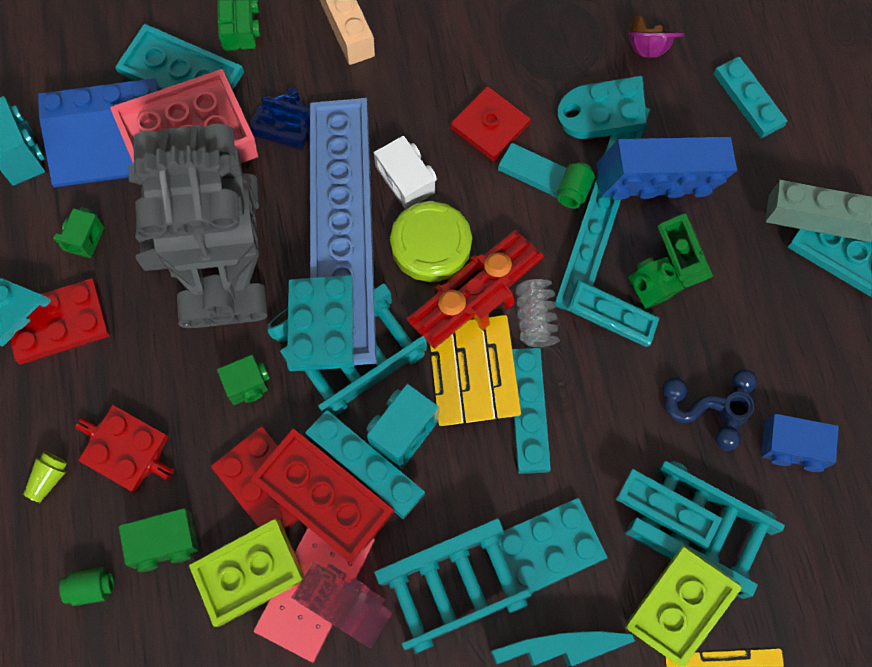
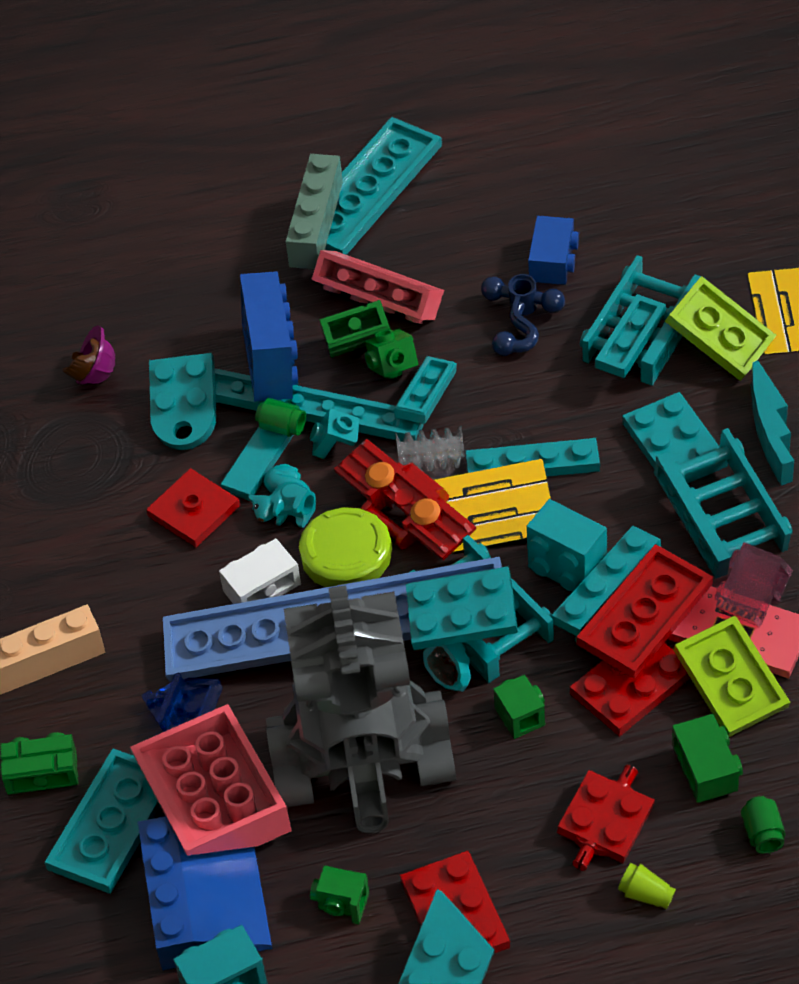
camera: 85 degrees left, 20 degrees down
(492, 198) = (288, 497): none -> teal animal
(561, 233) = (332, 428): none -> teal bracket
(742, 272) = (374, 283): none -> coral brick
(750, 97) = (164, 285): teal plate -> none

